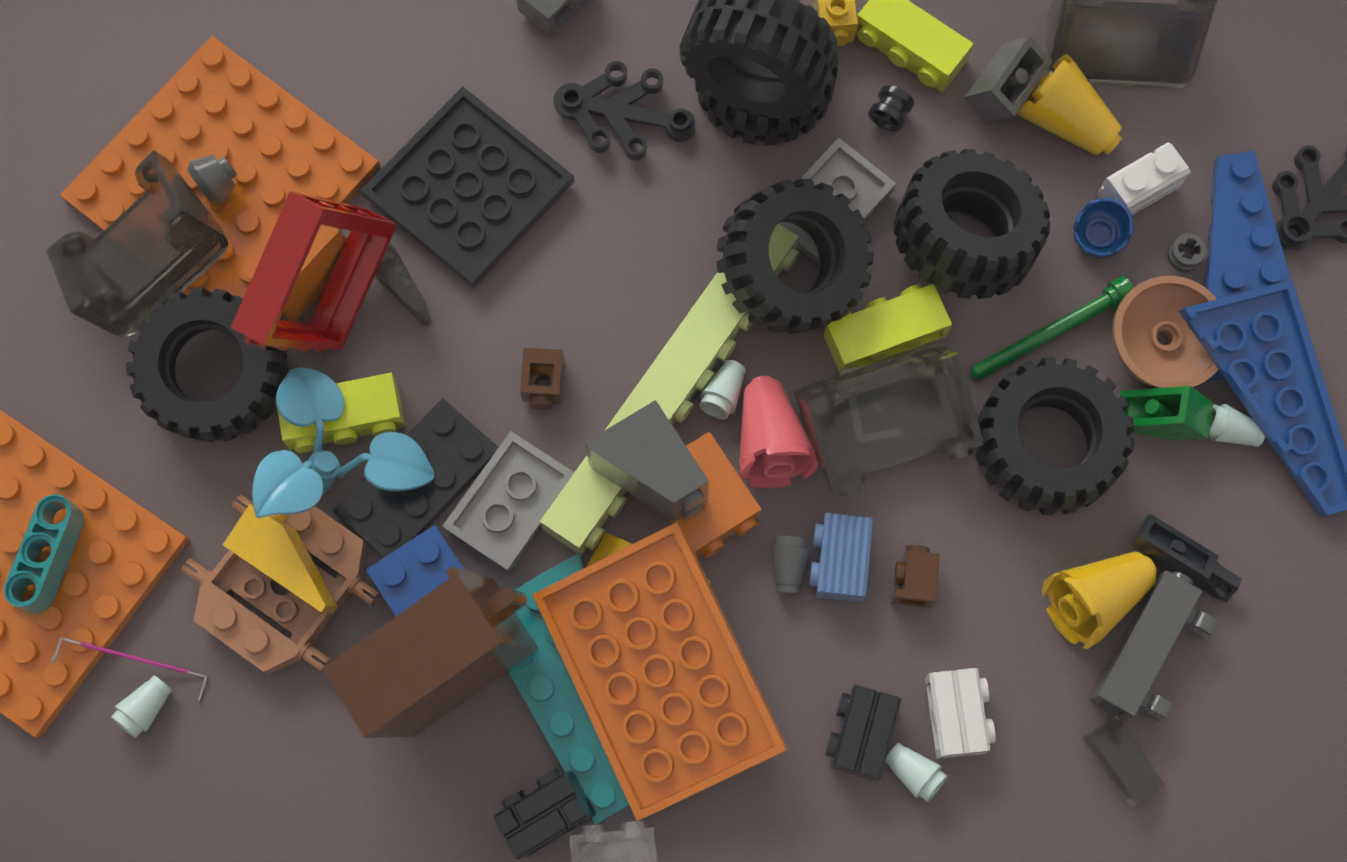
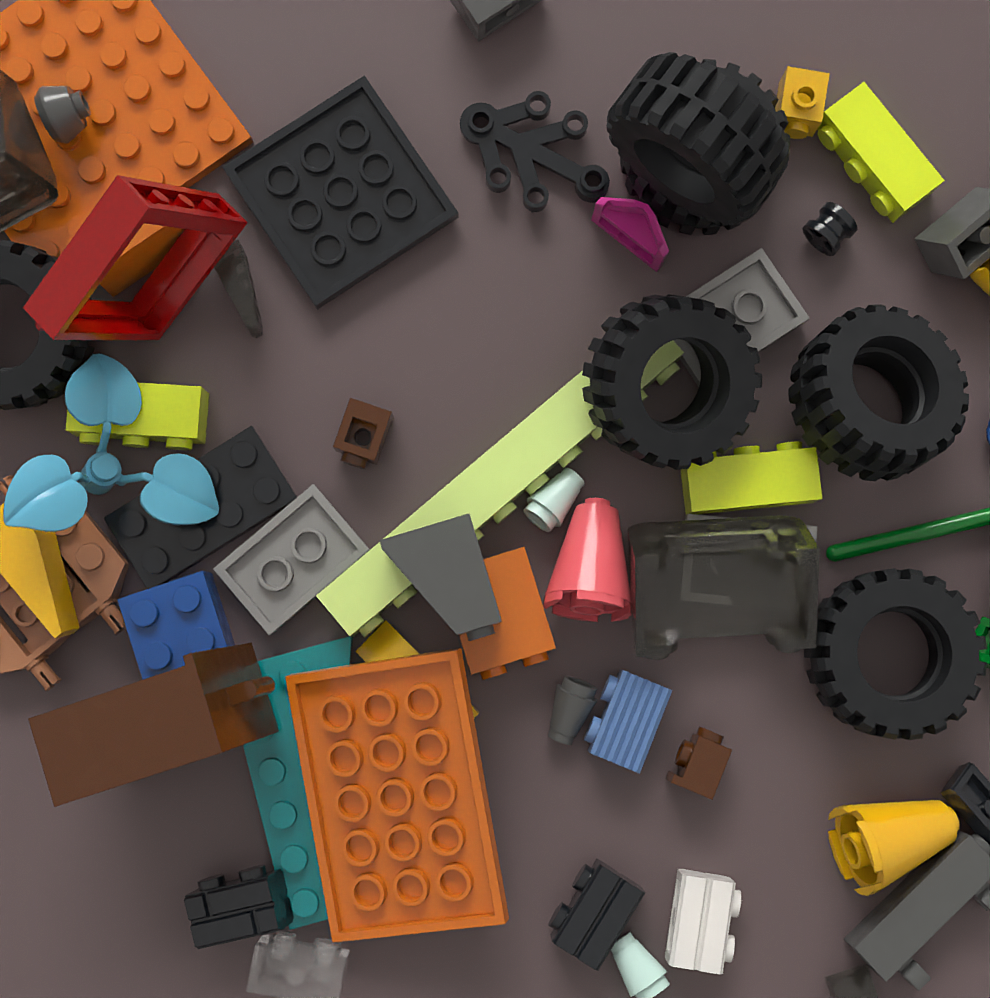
camera: 10 degrees right, 10 degrees up
(725, 147) = (634, 227): none -> dark pink slope

